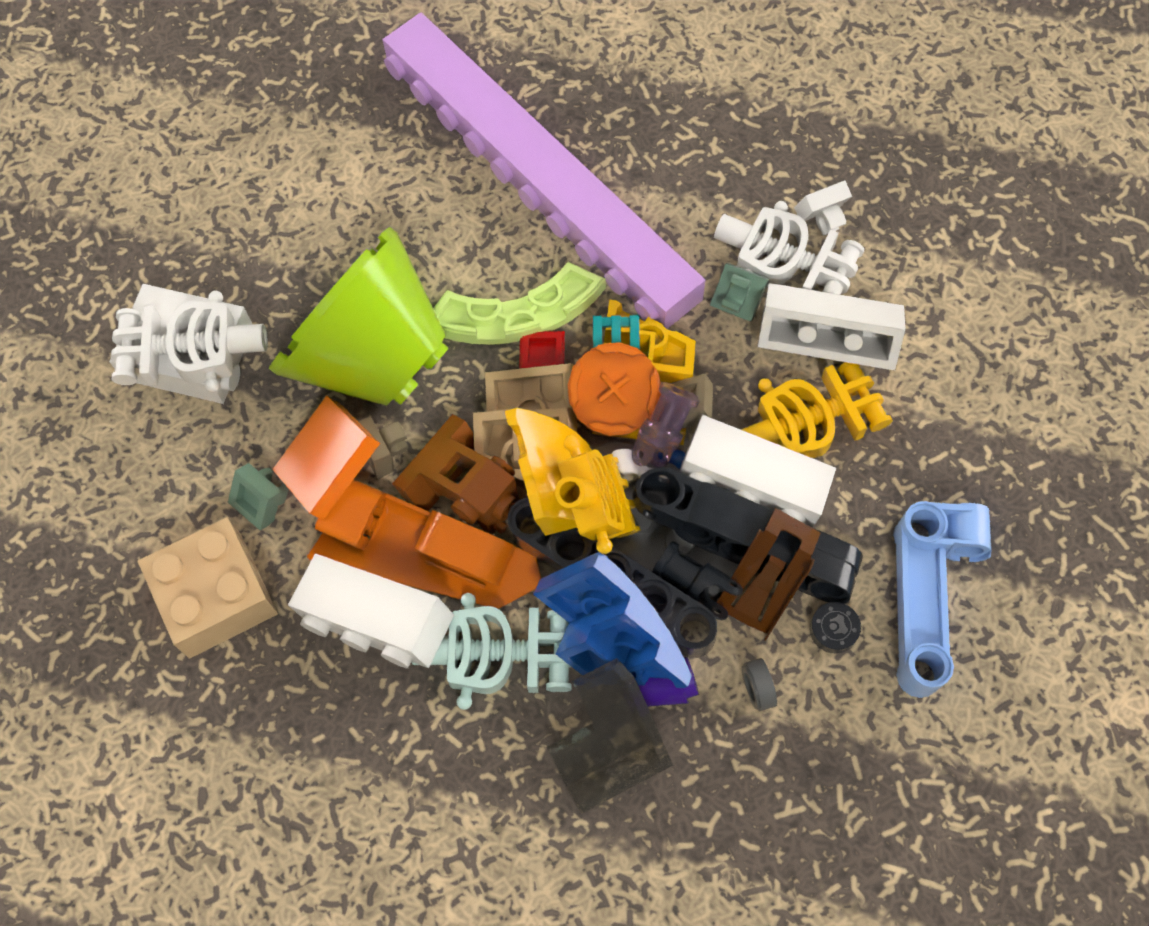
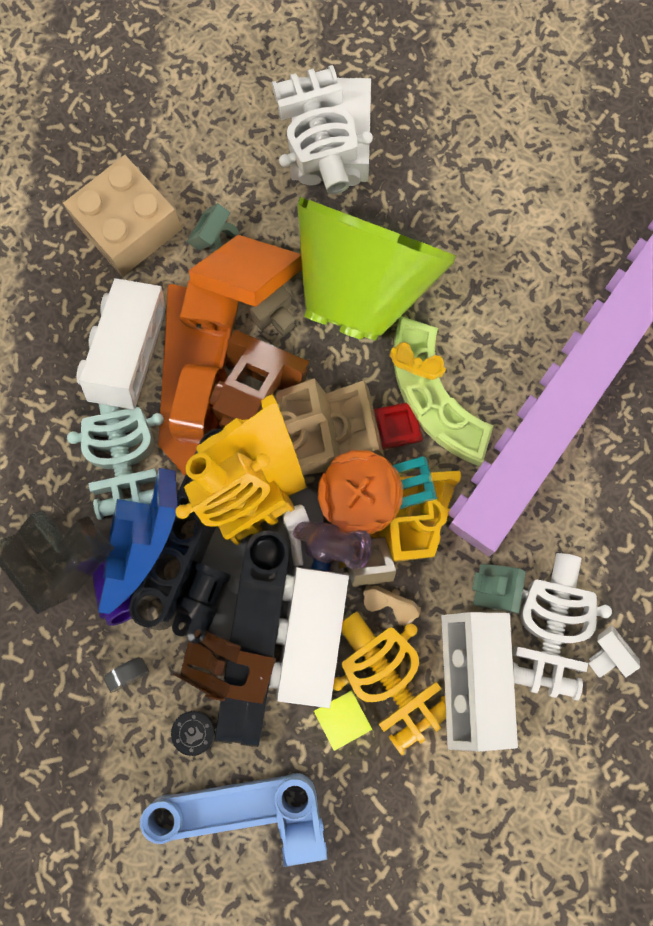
camera: 80 degrees right, 10 degrees up
(491, 304) = (430, 368): none -> yellow piece
(725, 408) = (378, 598): none -> tan piece
(852, 471) = (343, 720): none -> neon yellow tile

